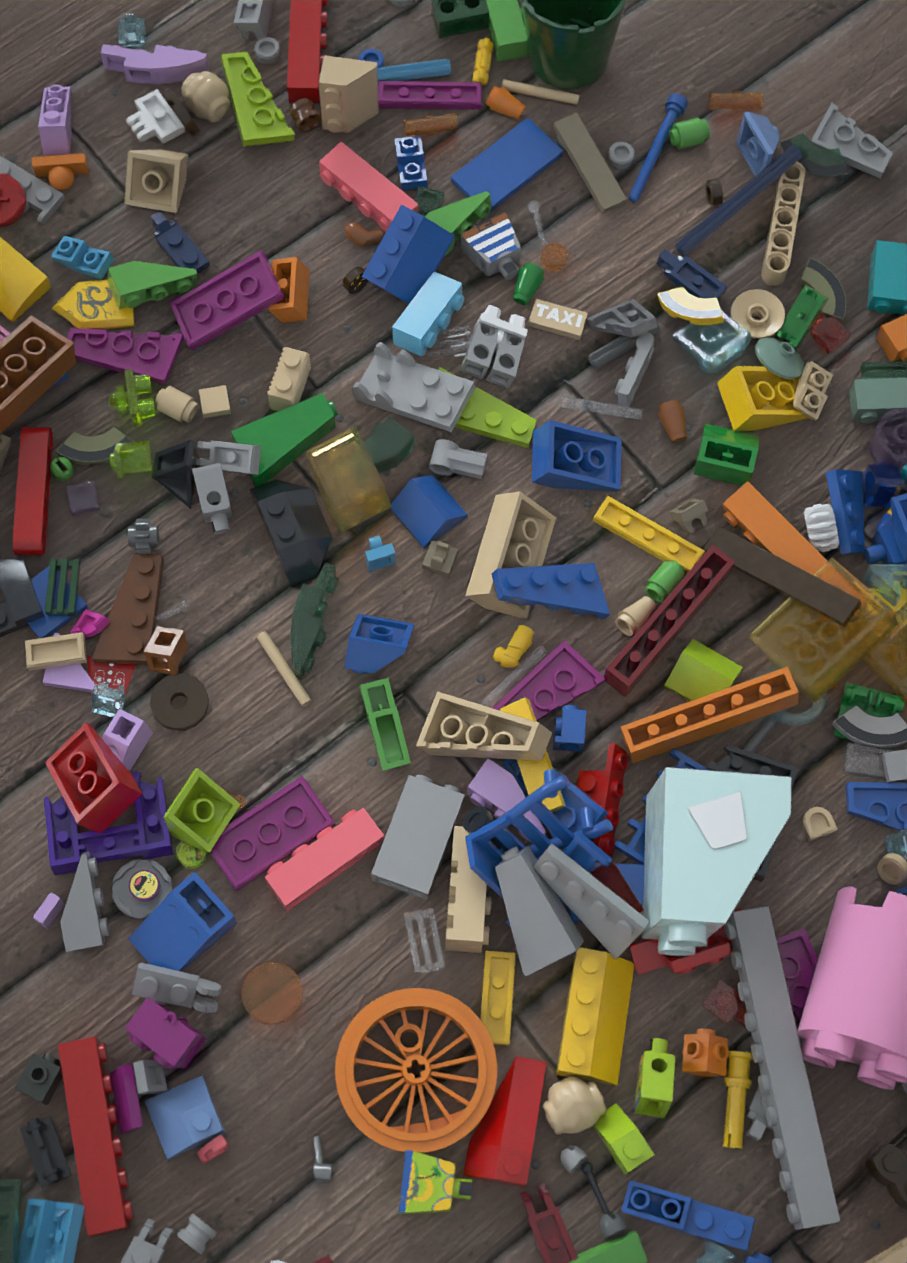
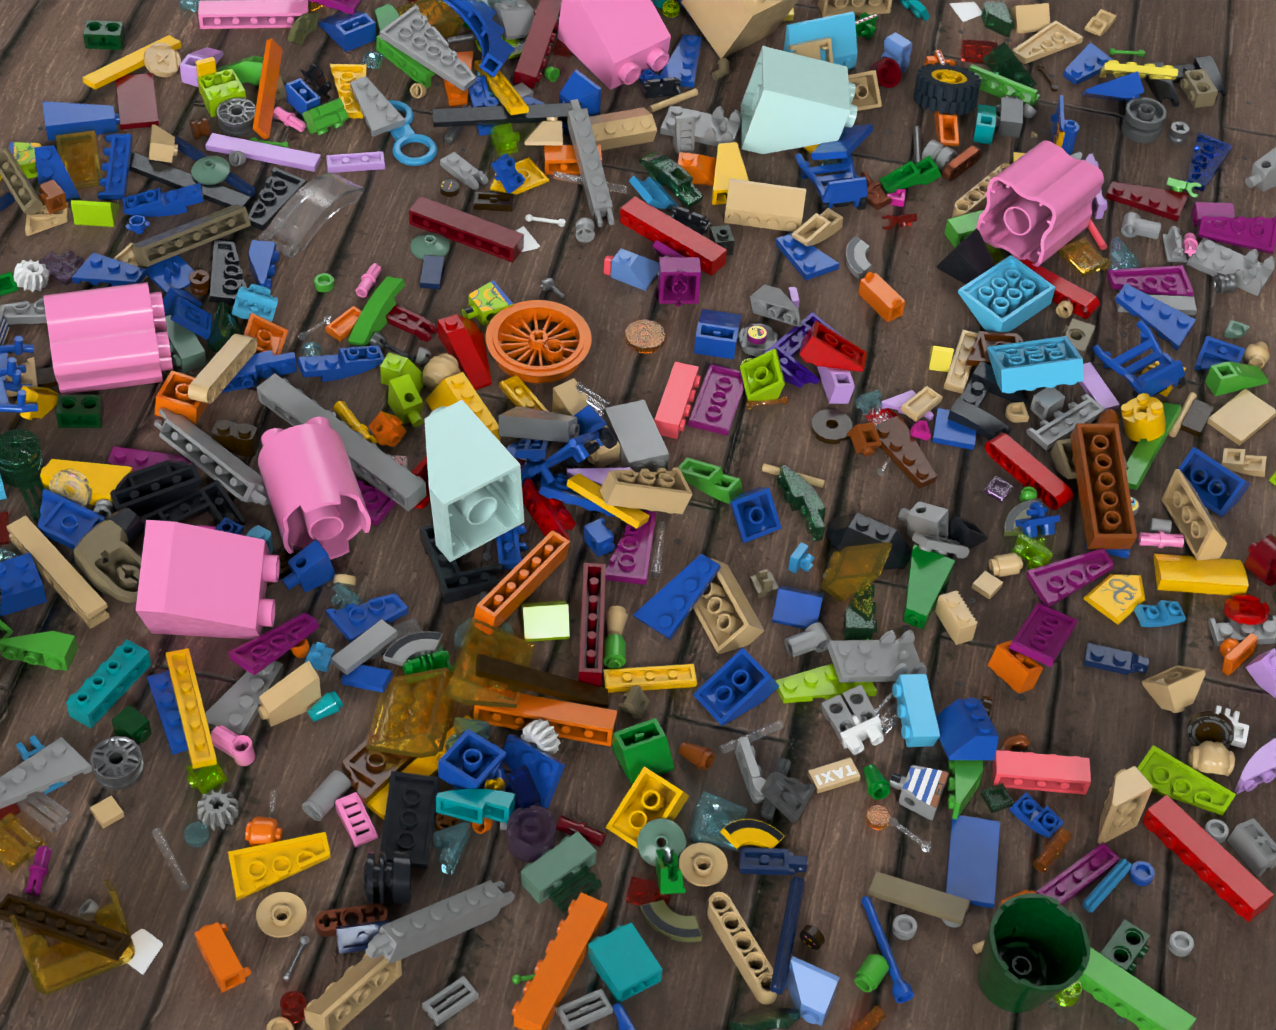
camera: 140 degrees right, 20 degrees down
(64, 565) = (956, 431): dark green tile -> none
(96, 419) = (1046, 522): none -> blue hips
(131, 458) = (999, 517): clear neon green bracket -> none
(143, 281) = (1104, 613): bright green slope -> none
(143, 536) = (941, 484): dark grey gear -> none
(175, 987) = (694, 306): light grey hinge -> none
(516, 648) = (671, 563): yellow arm -> none
(592, 902) = (516, 433): light grey wing -> none
(721, 820) = (466, 459): white sticker -> none
(811, 390) = (620, 835): tan slope -> none
(818, 823) = (409, 583): tan tile -> none
(843, 423) = (590, 834): none -> dark red pin

